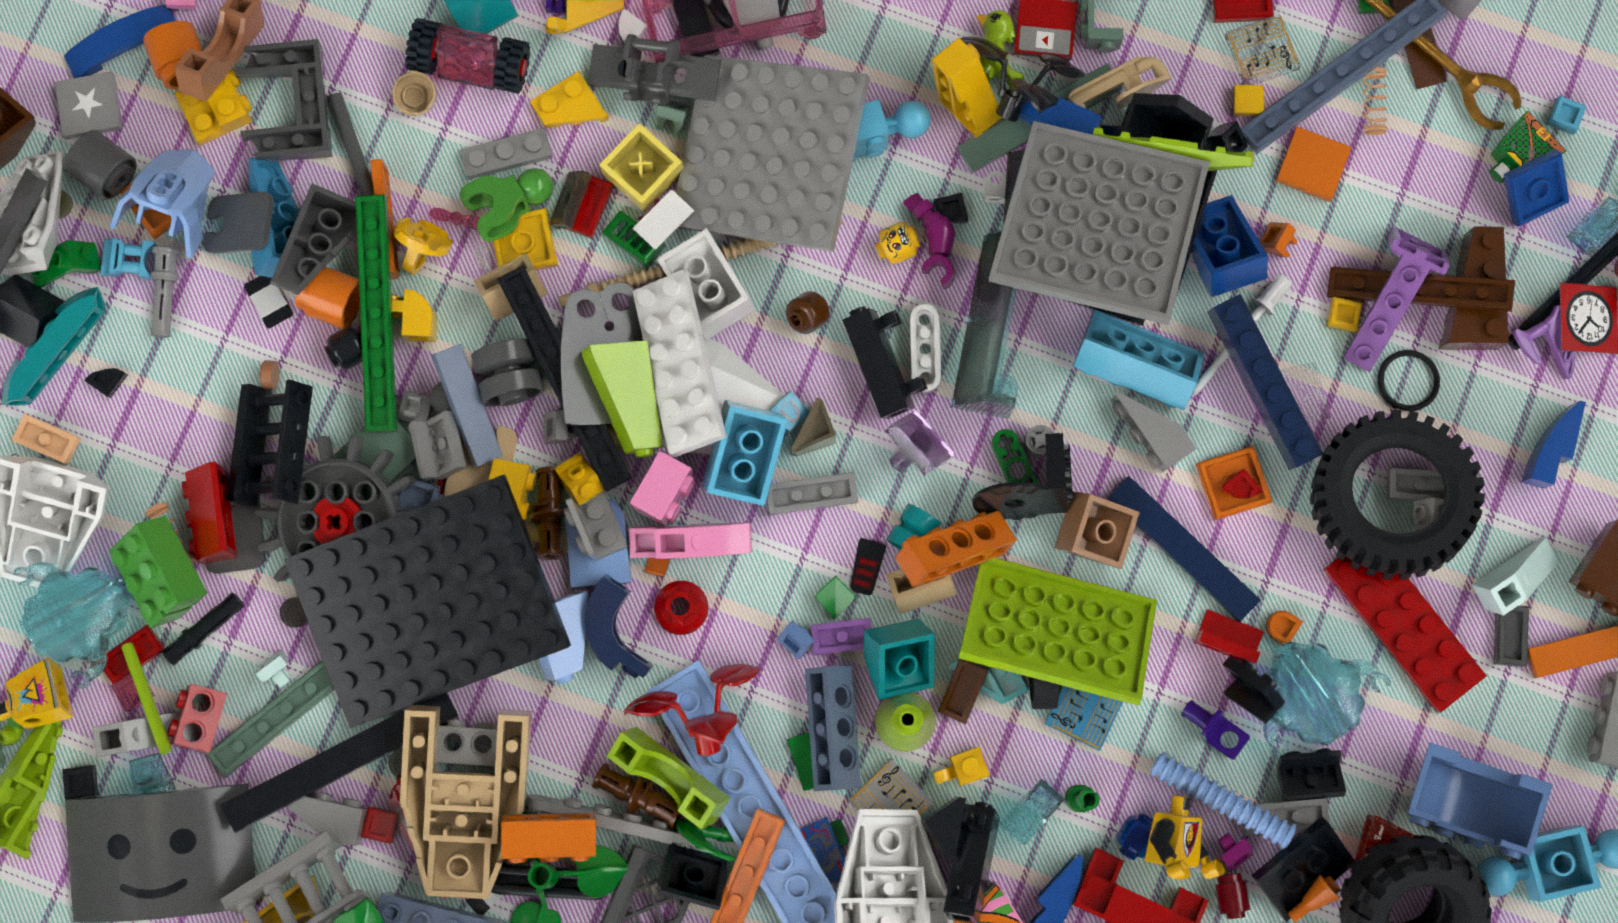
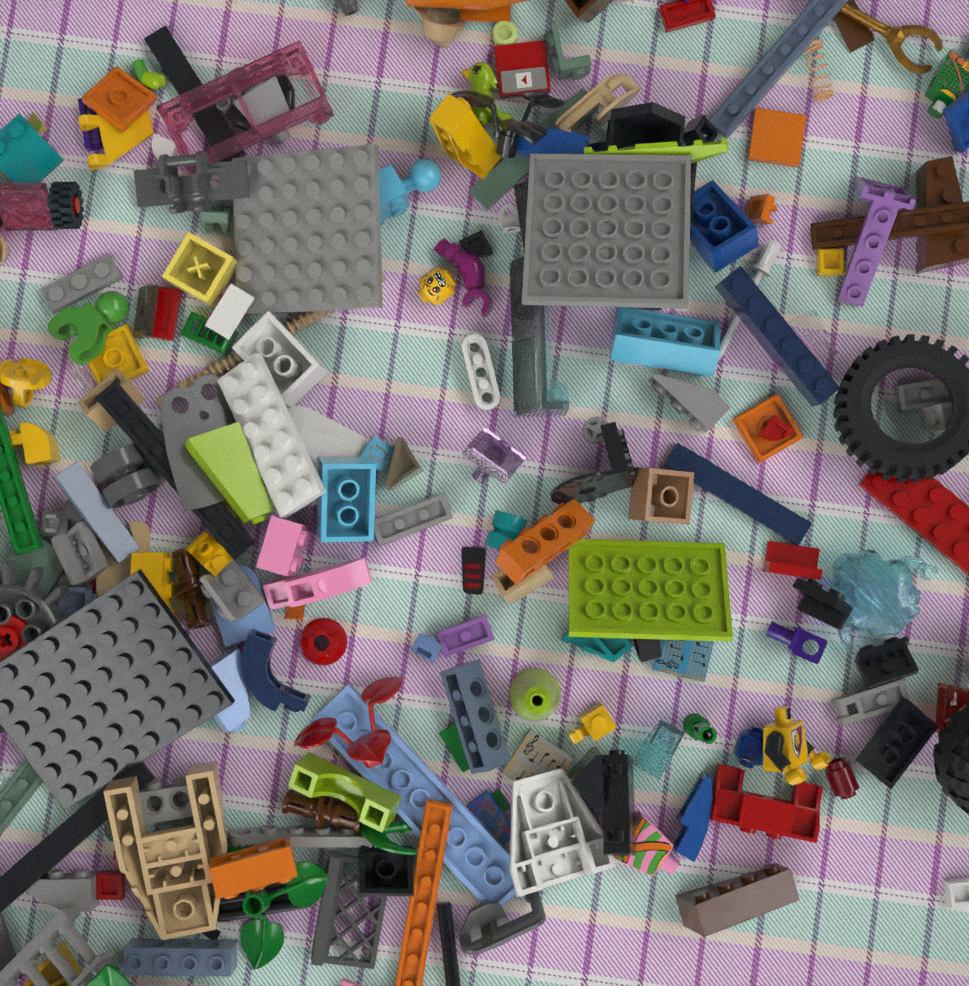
camera: 15 degrees left, 5 degrees up
(455, 217) = (52, 350): clear pink piece -> none
(555, 428) = (178, 515): light grey tile -> none
(568, 103) = (125, 227): yellow wing -> none
(807, 312) = (373, 364): reddish brown head -> none
(835, 597) = (452, 603): green slope -> none
(878, 361) = (443, 393): black brick -> none
(900, 658) = (518, 644): teal slope -> none
(963, 690) = (578, 660): reddish brown tile -> none
(1001, 453) = (571, 458): green beam -> none
(1223, 800) = (818, 701): light blue piece -> none
(1235, 852) = (836, 742): magenta tile -> none
(1248, 100) = (709, 94): yellow tile -> none
(1262, 50) = (712, 48): clear tile -> none
(1282, 626) = (834, 541): orange tile -> none
(1319, 895) = (915, 762): orange cone -> none
(1395, 404) = (900, 283): black tyre -> none

